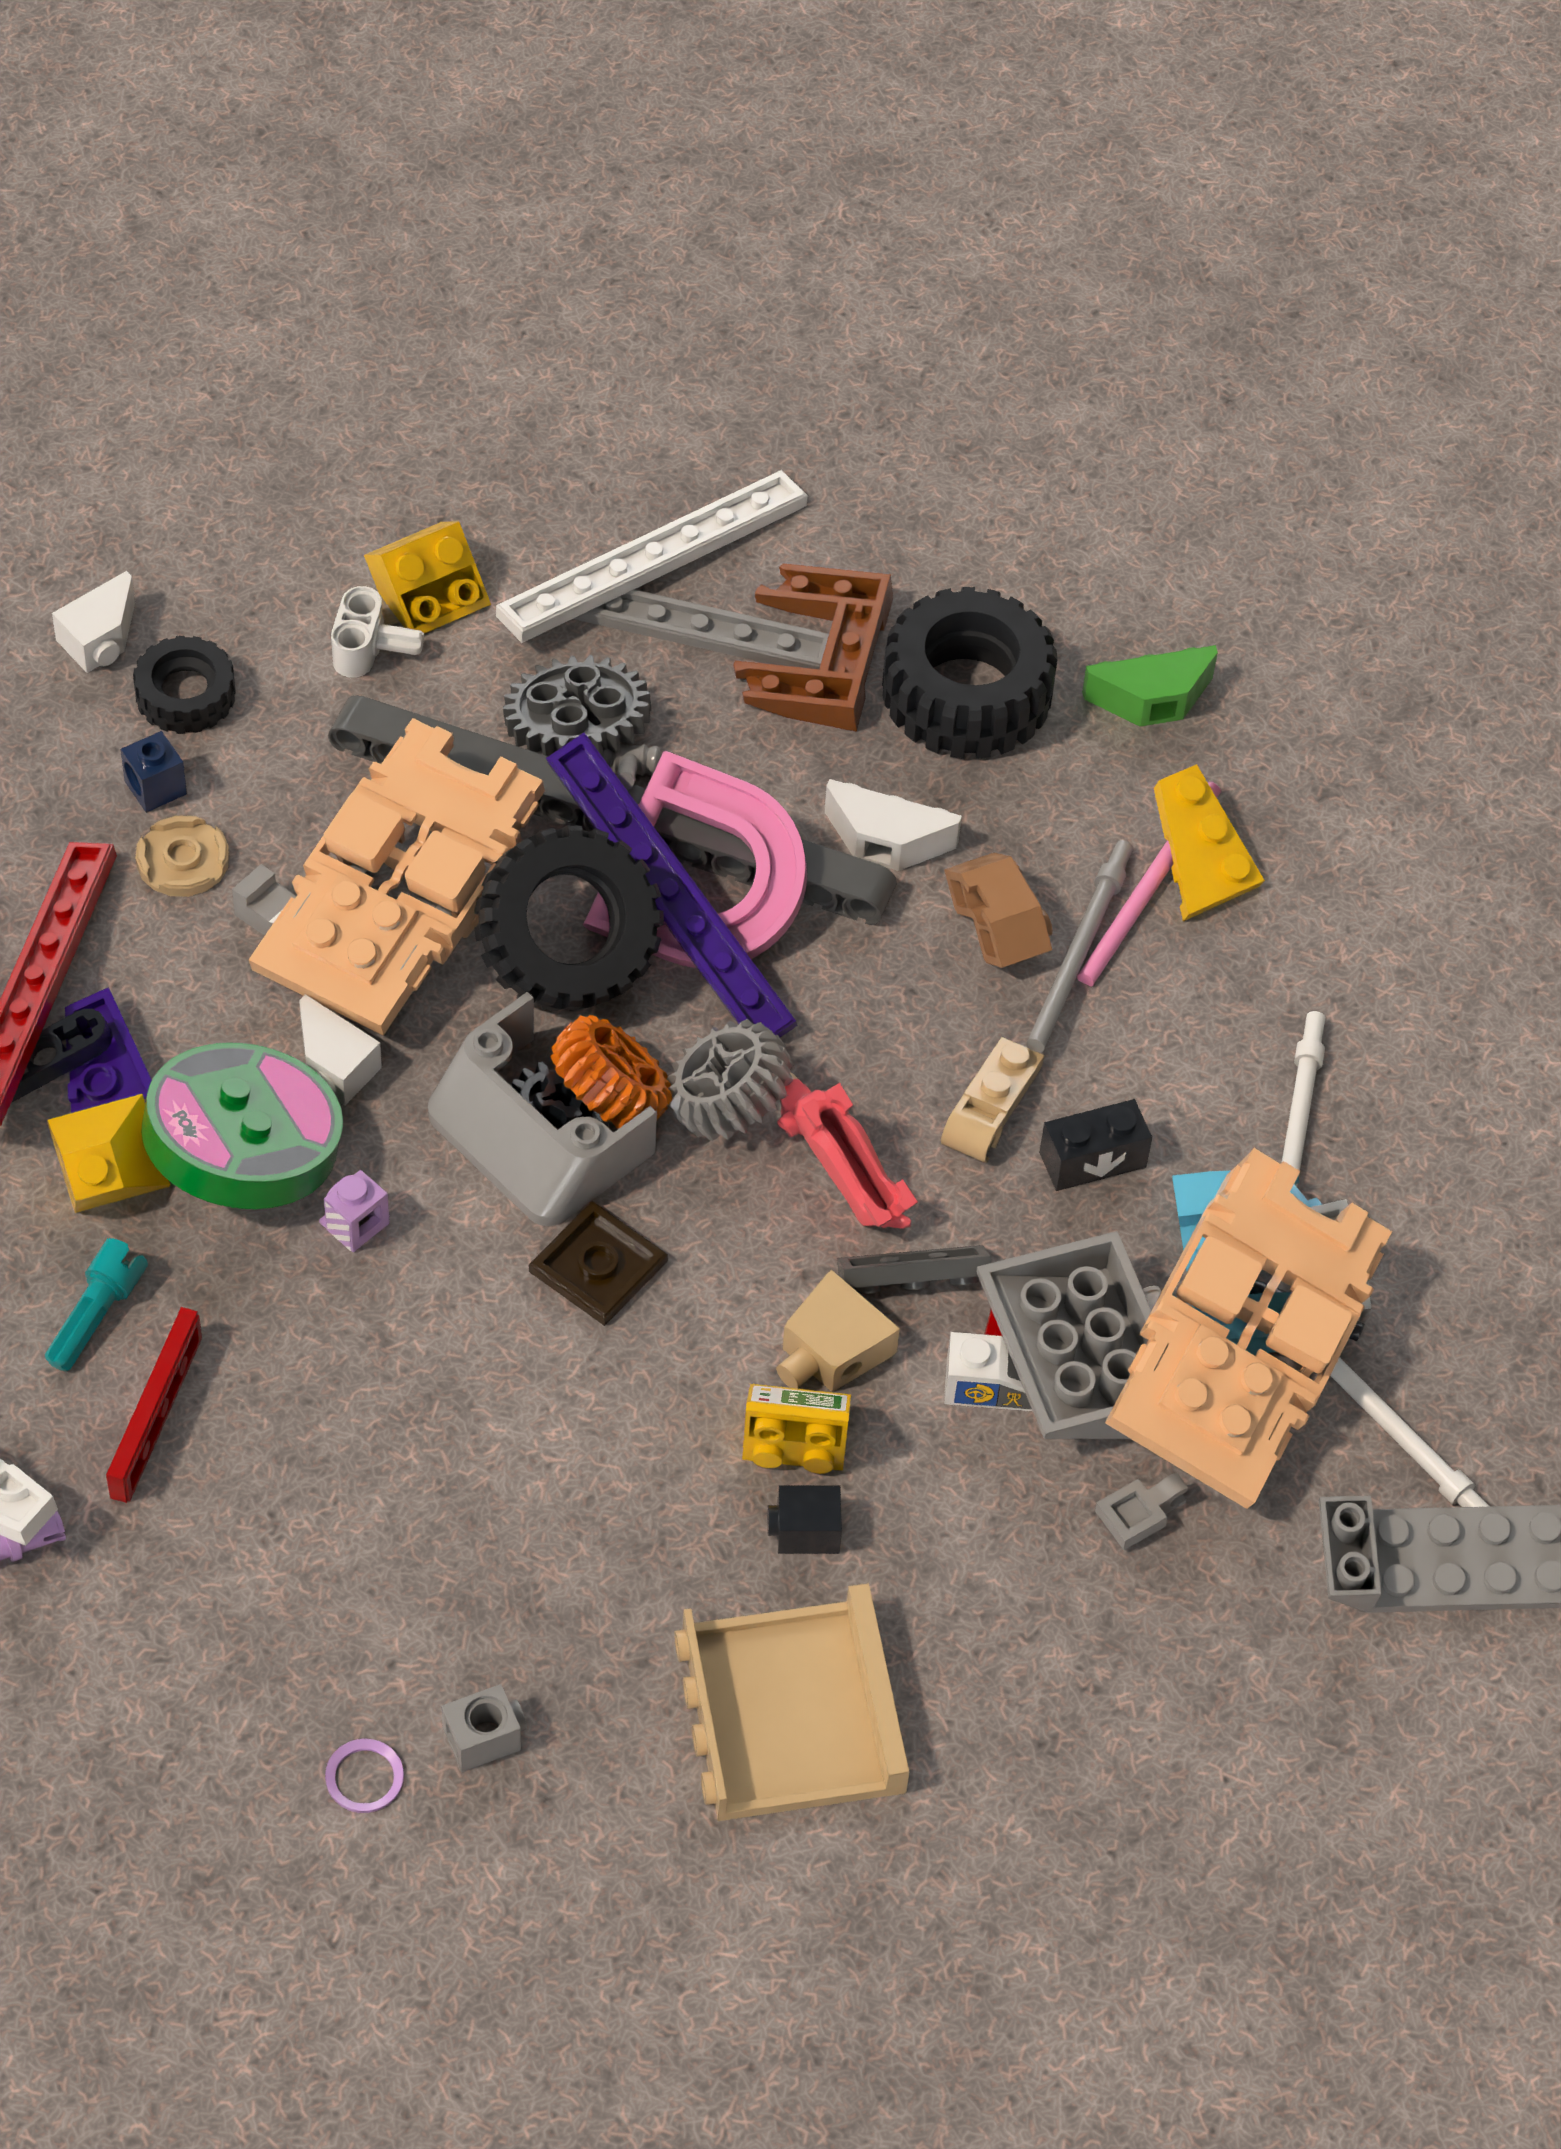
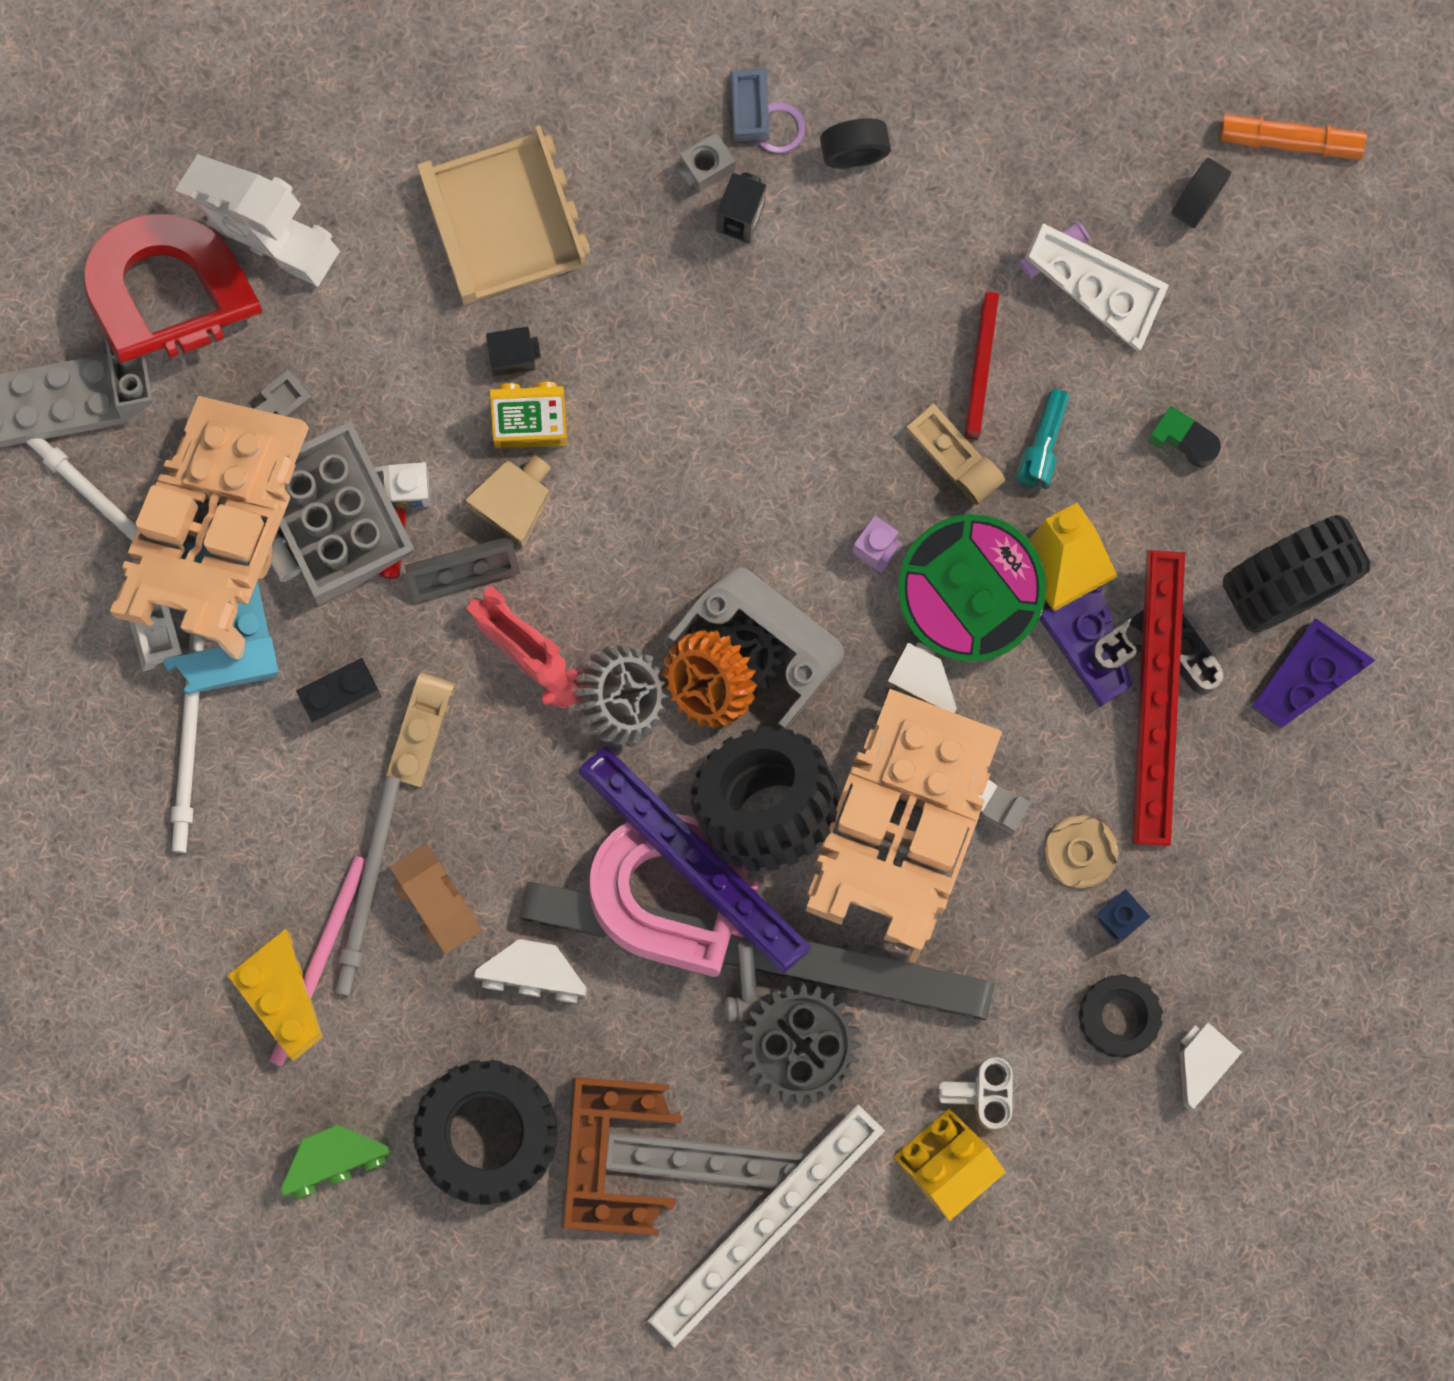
camera: 170 degrees right, 25 degrees up
(221, 1302) = (955, 455): none -> tan plate
(259, 1707) = (855, 143): none -> black tyre
(400, 1808) = (750, 105): none -> sand blue tile
(446, 1639) = (741, 206): none -> black brick
(598, 1263) = (693, 541): dark brown tile -> none
(1154, 1708) = (259, 216): none -> white wedge
(1370, 1635) = (172, 237): none -> piece

